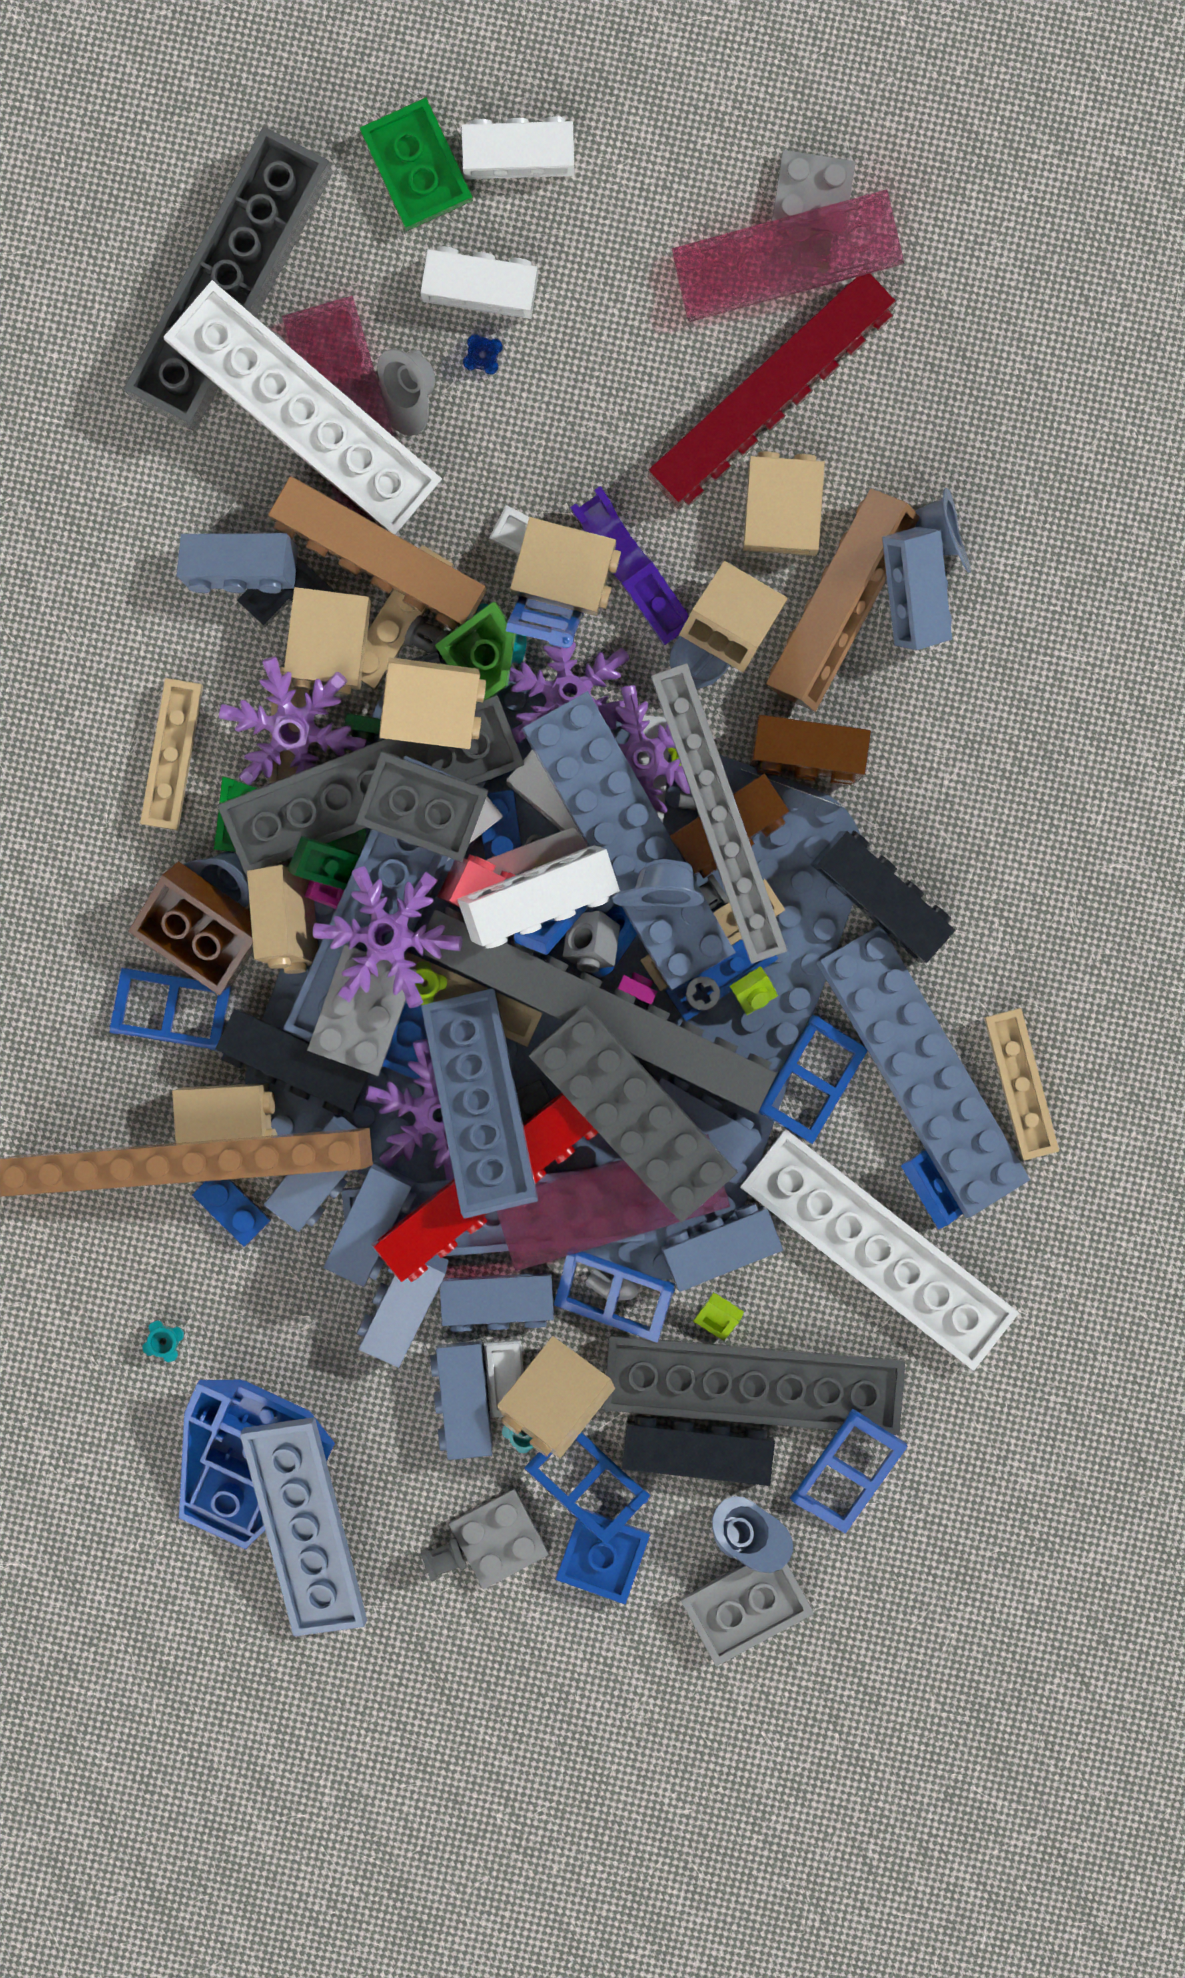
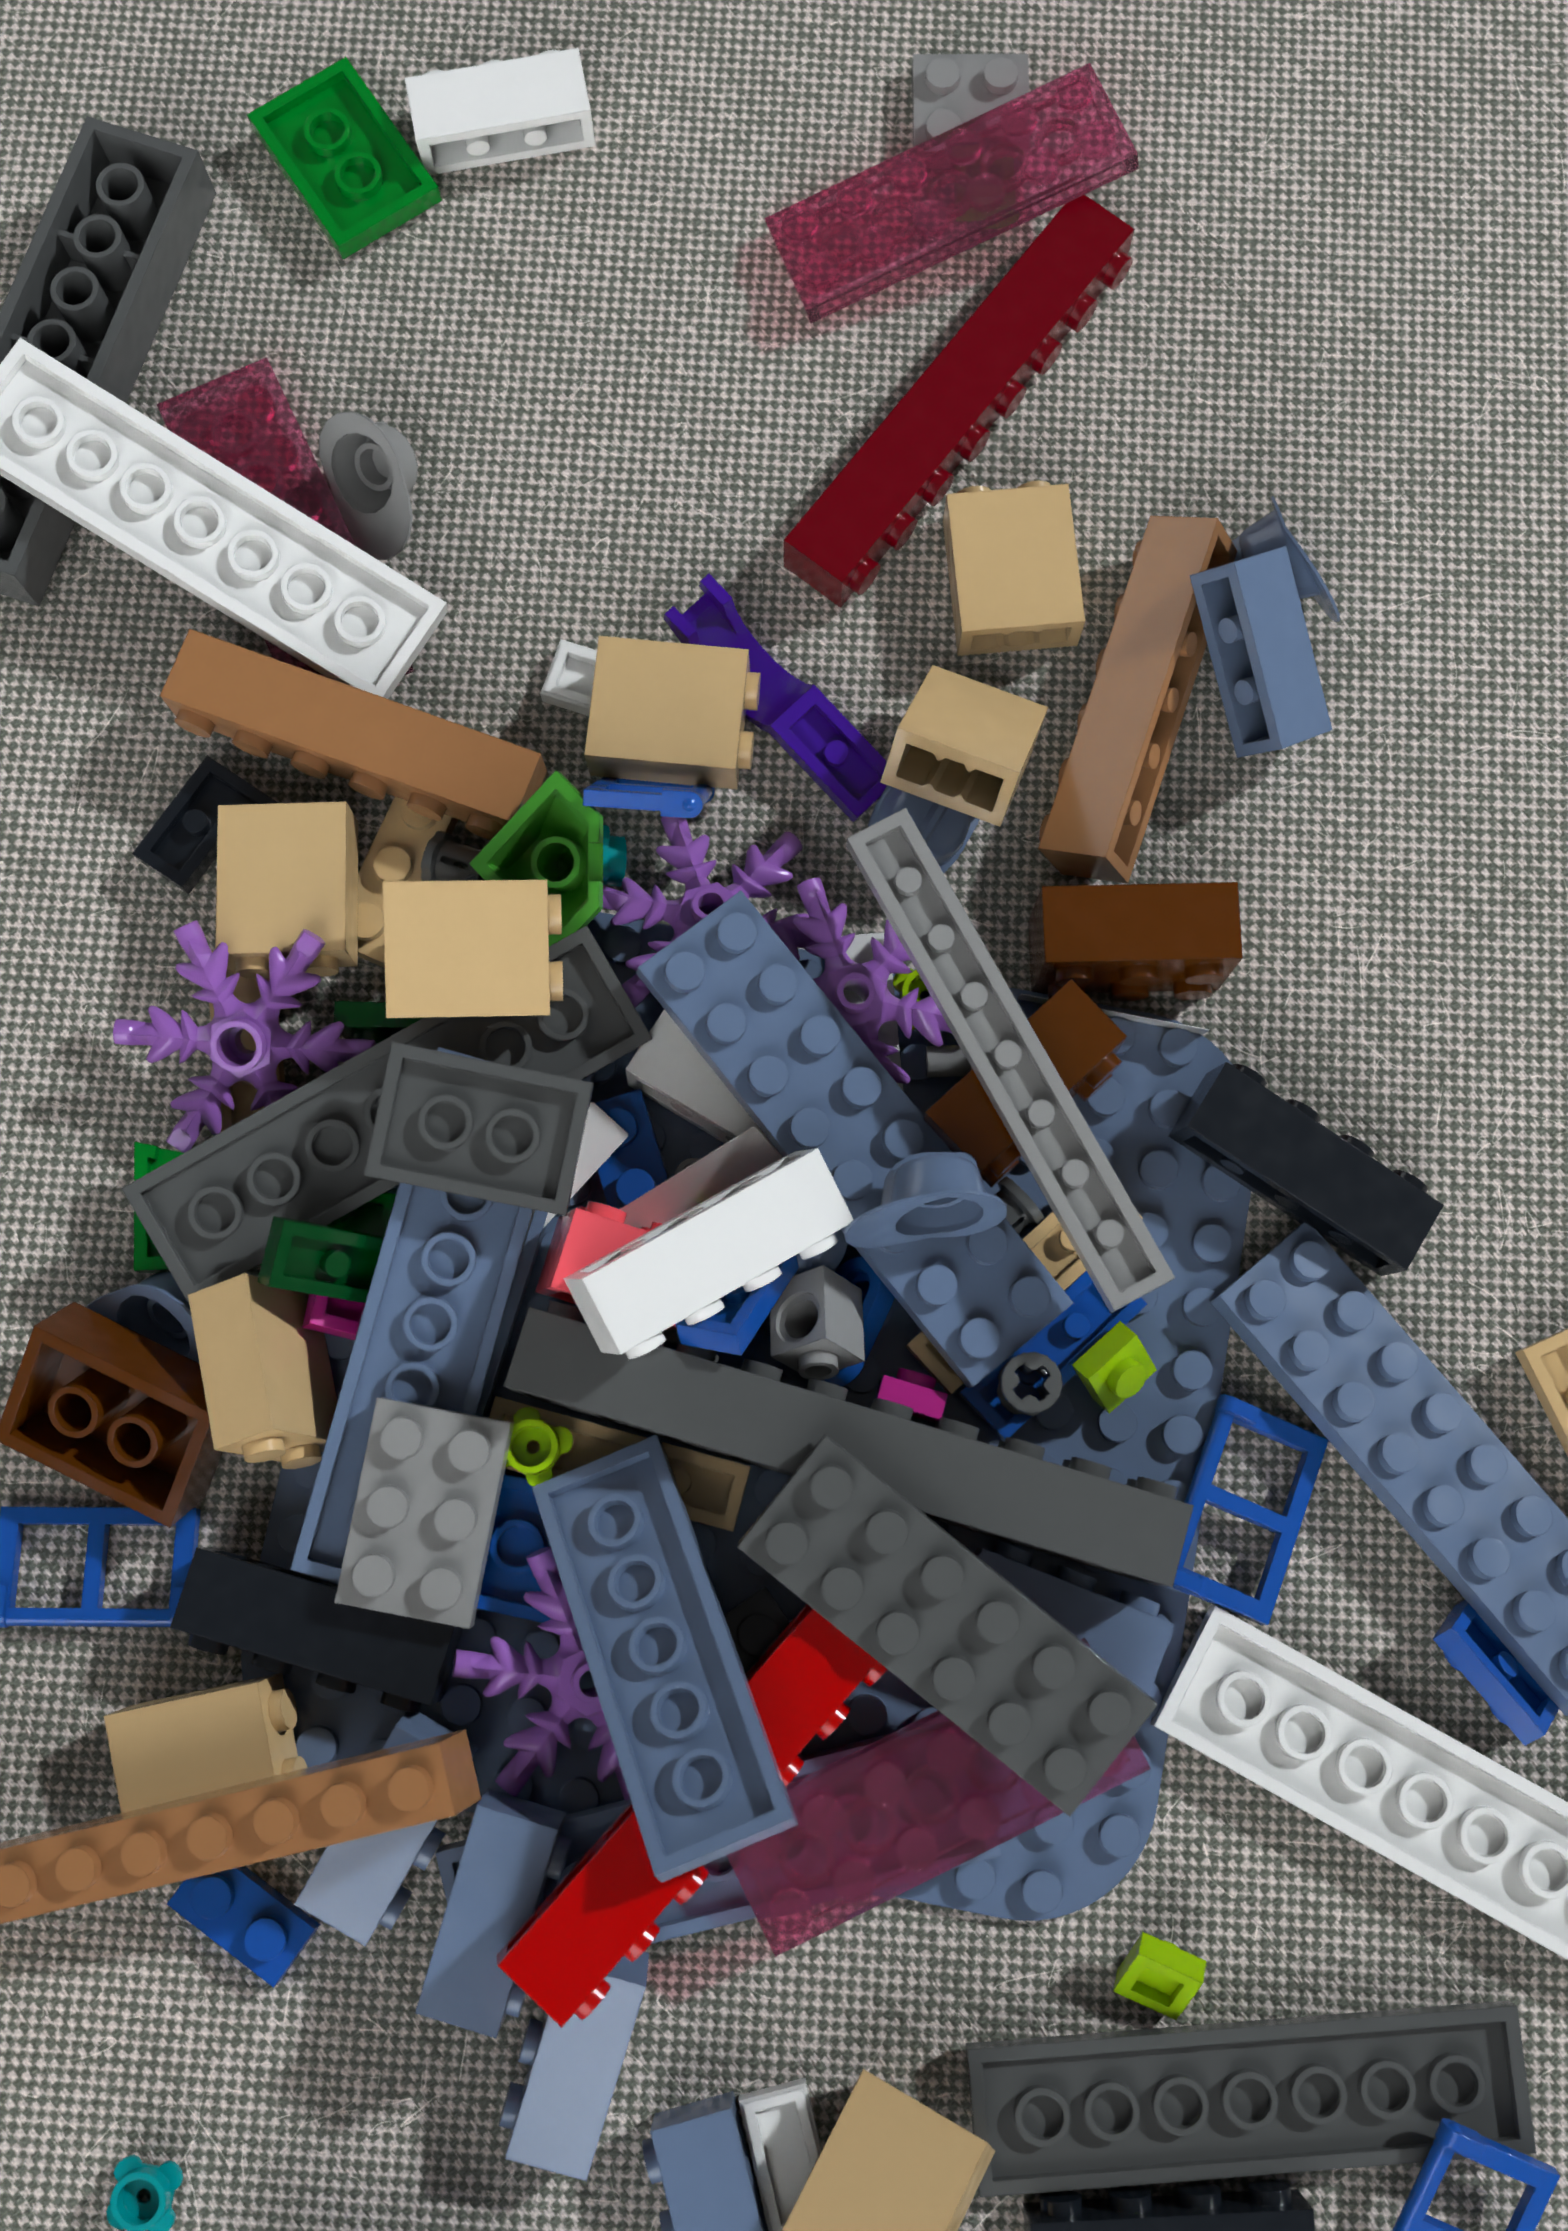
camera: 10 degrees left, 10 degrees down
(171, 754) = (50, 1126): tan plate -> none
(237, 562) = (122, 787): sand blue brick -> none
(379, 927) = (428, 1368): medium lavender piece -> none
(479, 282) = (467, 311): white brick -> none
(490, 347) = (487, 403): clear blue plate -> none
(497, 1301) = (749, 2015): sand blue brick -> none
(602, 1286) = (960, 1956): light grey arm -> none
(607, 1316) = (957, 2009): blue window -> none
(720, 1246) = (1142, 1845): sand blue brick -> none

